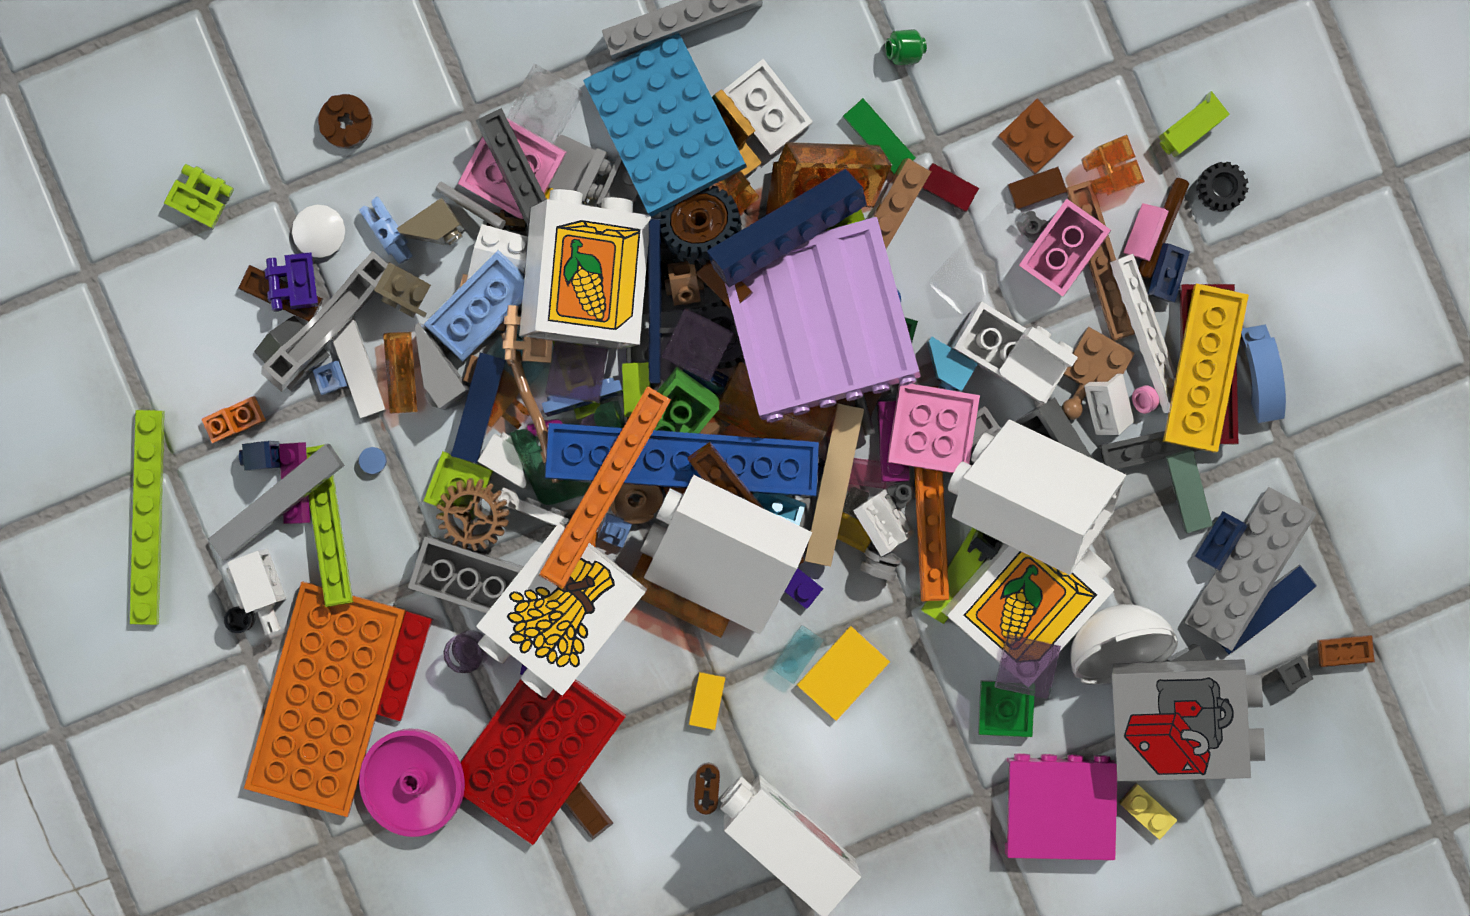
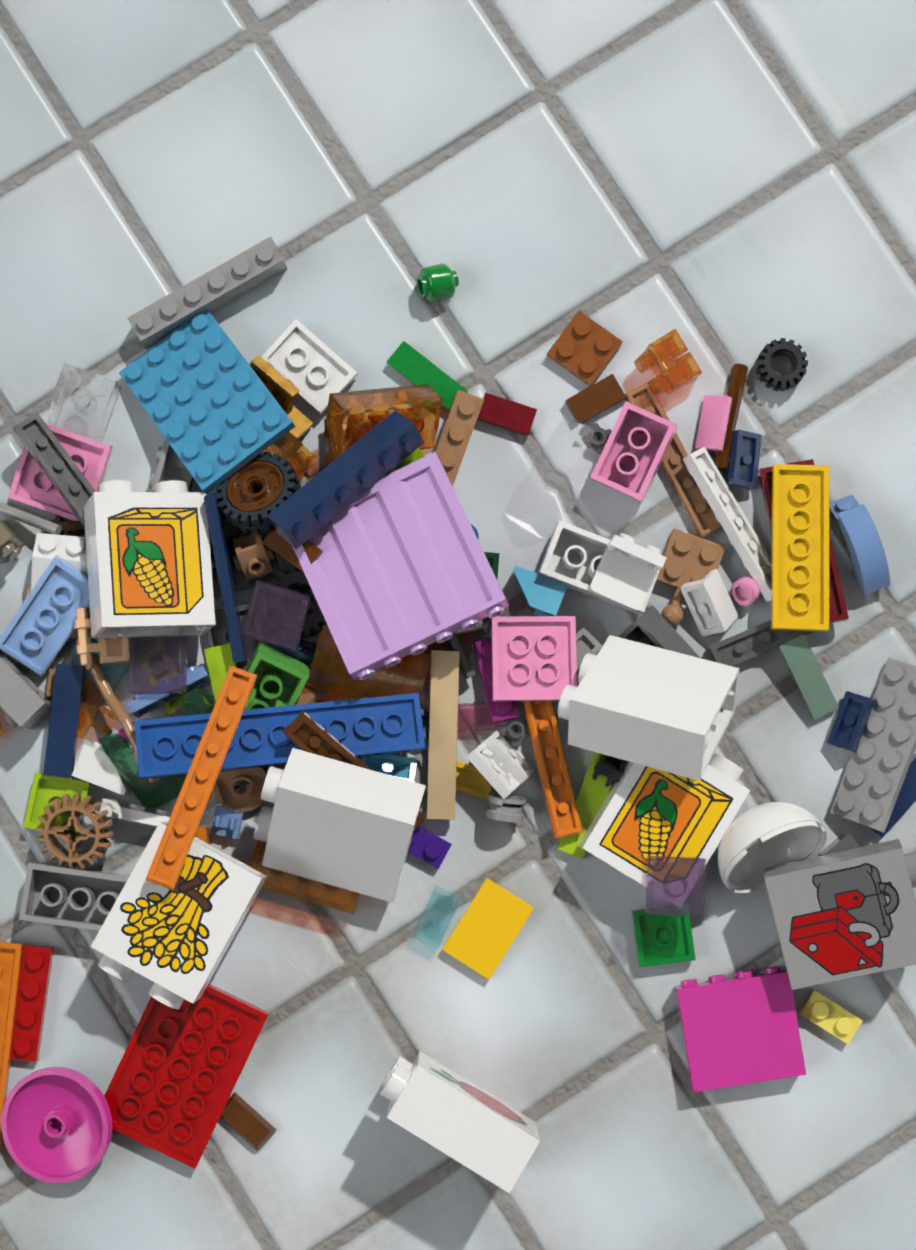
camera: 15 degrees left, 5 degrees down
(470, 659) = (95, 984): clear purple helmet -> none
(579, 168) = (129, 459): light grey bracket -> none
(707, 700) = (352, 983): yellow tile -> none
(713, 788) = (374, 1075): reddish brown beam -> none
(854, 499) = (467, 745): clear smoke slope -> none
(1193, 125) = (740, 309): lime window -> none

